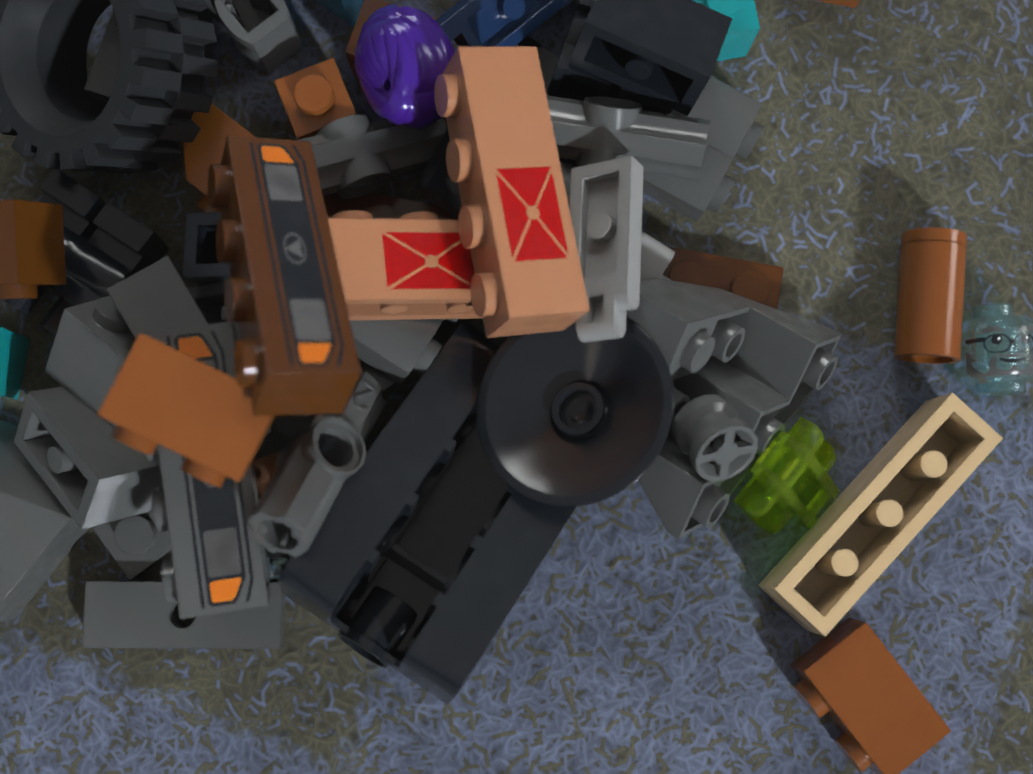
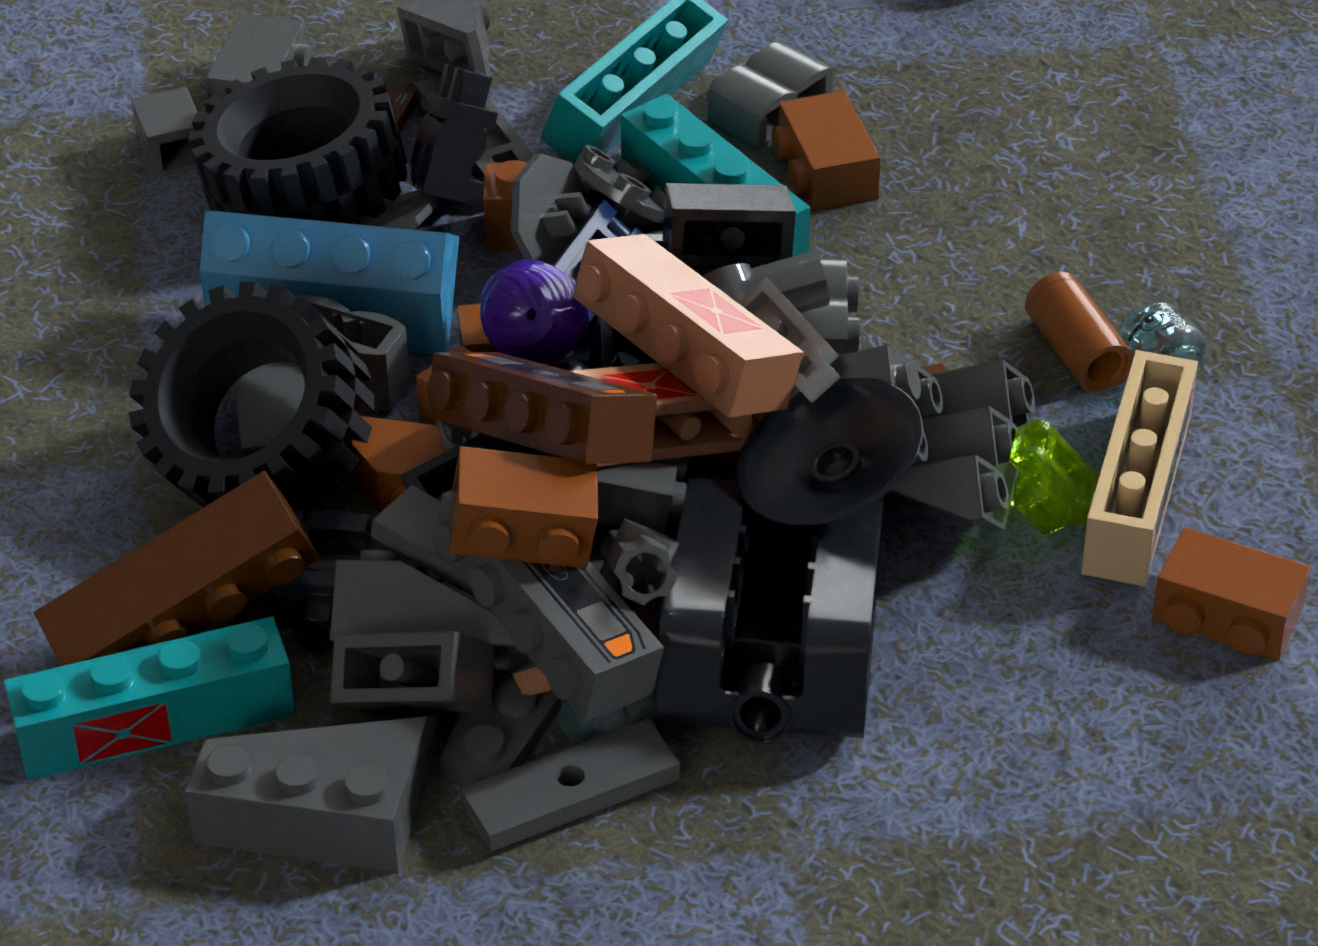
camera: 25 degrees left, 40 degrees down
(714, 437) = (962, 426): dark grey wheel -> none

